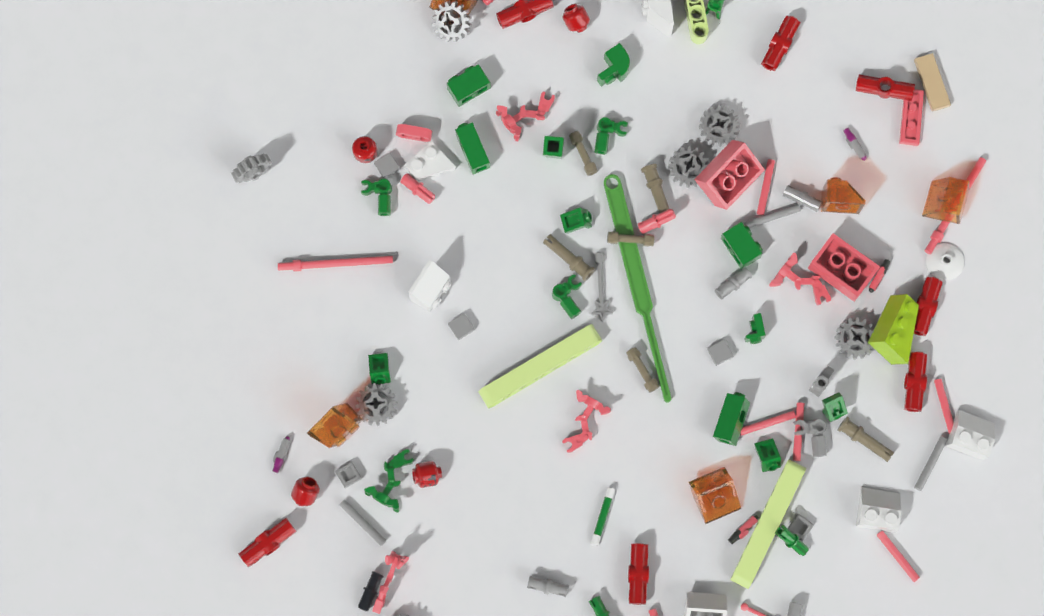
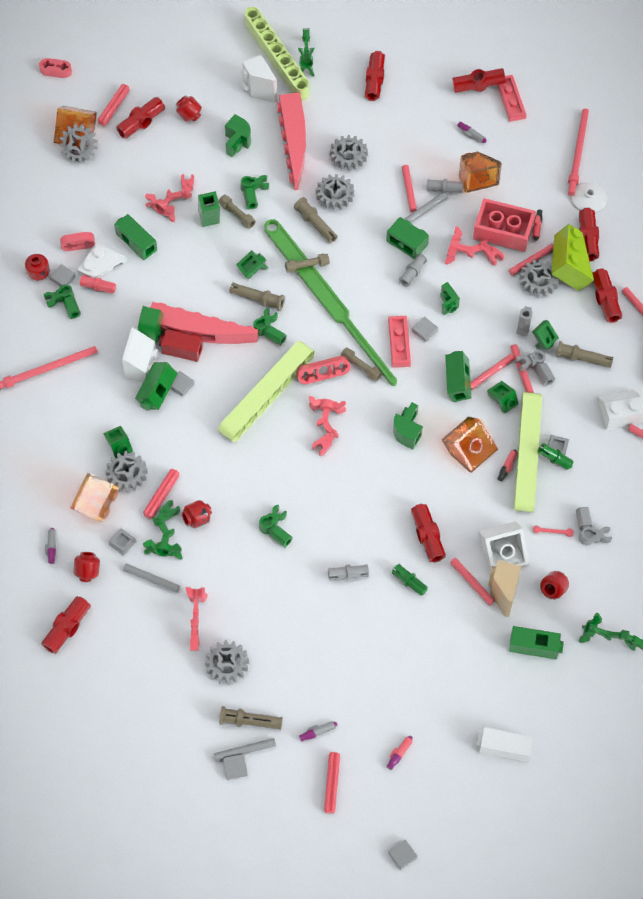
camera: 20 degrees left, 15 degrees down
(370, 591) = (181, 634): black axle -> none
(401, 438) = (161, 493): none -> coral axle
(434, 324) = (156, 386): none -> green brick
(451, 257) = (150, 322): none -> green brick
(468, 85) = (112, 189): green brick -> none
(475, 286) = (181, 345): none -> red brick
(490, 508) = (269, 526): none -> green bar
(495, 269) = (209, 328): none -> coral slope
(601, 306) = (303, 327): light grey piece -> none
(602, 516) = (375, 497): green bar -> none
(617, 368) = (335, 361): none -> coral beam
(656, 221) = (324, 240): coral axle -> none
(658, 458) = (404, 429): none -> green brick
(672, 85) = (294, 133): none -> coral slope
(690, 356) = (399, 341): none -> coral tile
(729, 174) = (373, 183): coral brick -> none
(857, 313) = (536, 257): none -> coral bar
(932, 82) = (516, 67): tan tile -> none
(946, 199) = (569, 146): clear orange slope -> none

